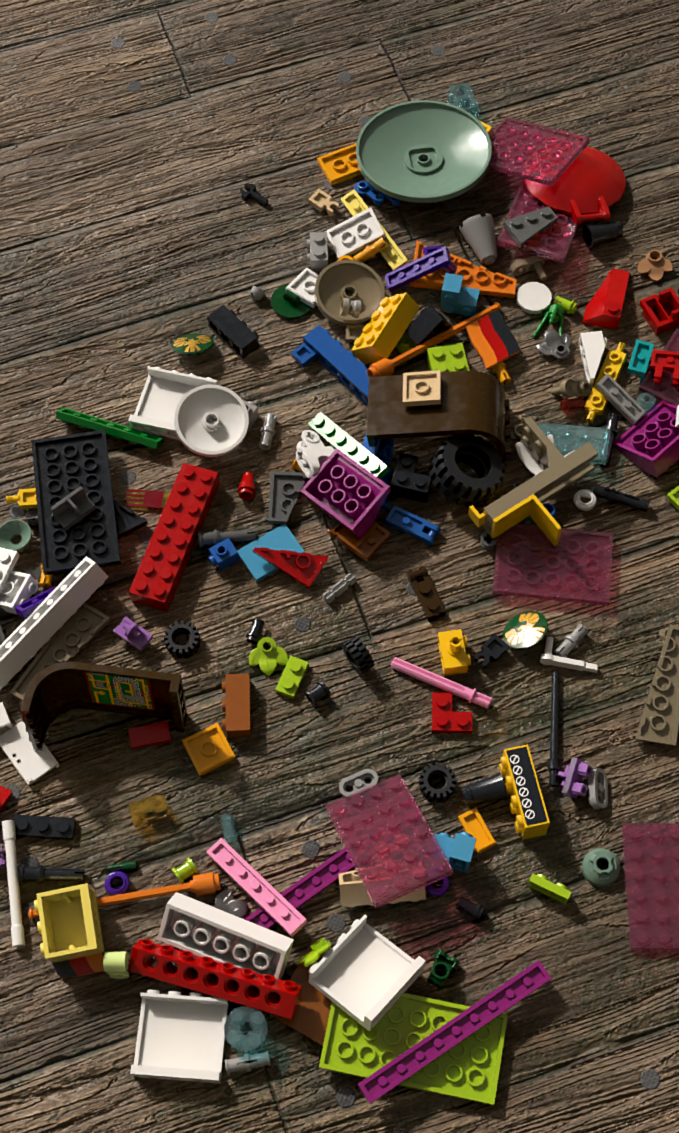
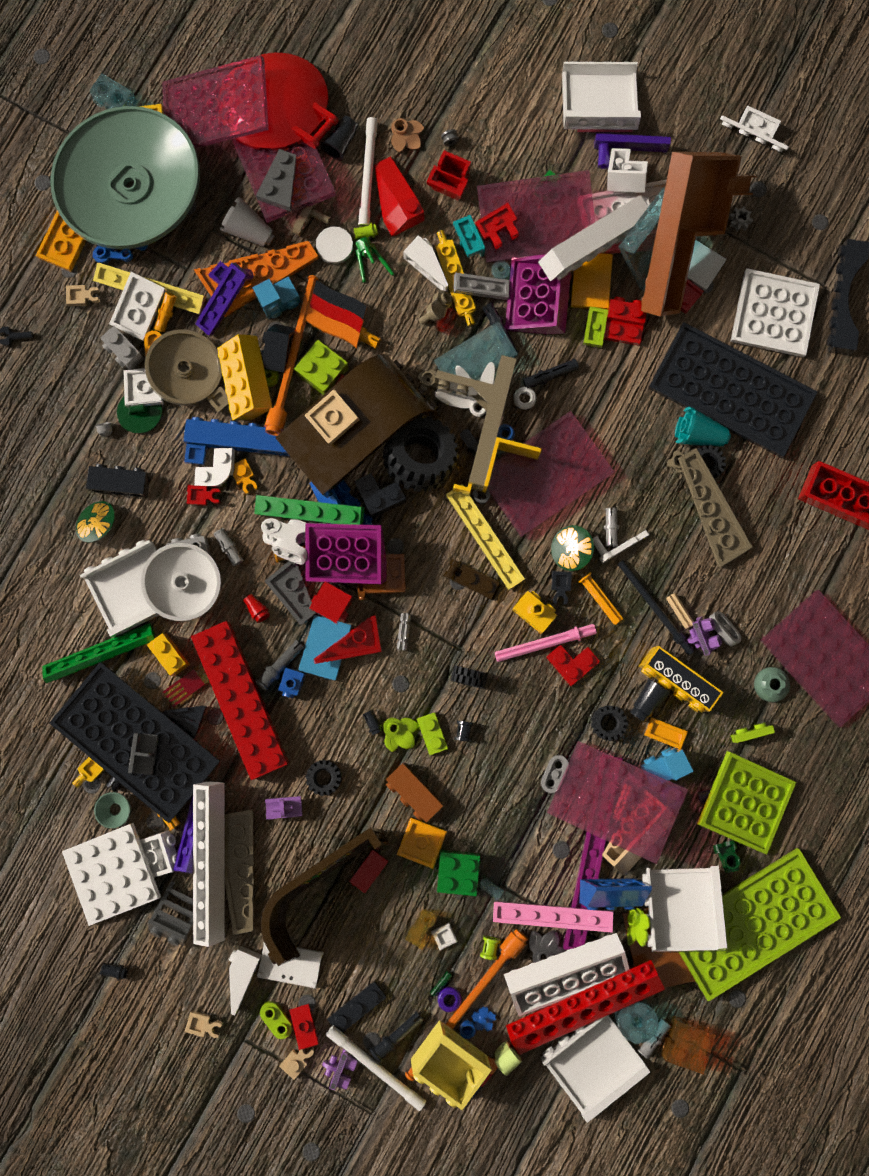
camera: 45 degrees left, 20 degrees up
(105, 920) = (466, 1031): none -> blue hinge
(128, 924) = (483, 1019): none -> blue plant
(155, 466) = (168, 654): none -> yellow brick
(159, 833) = (444, 936): none -> white tile
(214, 791) = (458, 872): none -> green brick
(269, 1091) = (690, 1045): none -> clear orange piece
(282, 383) = (199, 495): none -> red plate
(305, 521) = (331, 603): none -> red plate
(316, 375) = (221, 470): none -> white plate
(320, 909) = (613, 893): none -> blue slope
(324, 392) = (243, 474): none -> light orange plate
(350, 307) = (199, 383): light grey wheel -> none
(412, 525) = (413, 532): blue plate -> none
(453, 1032) = (778, 896): magenta plate -> none
(463, 572) = (486, 538): none -> light yellow plate
(494, 936) = (746, 802): none -> lime plate
(515, 685) = (601, 599): none -> light orange axle
(553, 343) = (386, 276): flat silver plate -> none
(573, 744) = (680, 610): none -> tan axle
(628, 247) = (371, 133): none -> white piece

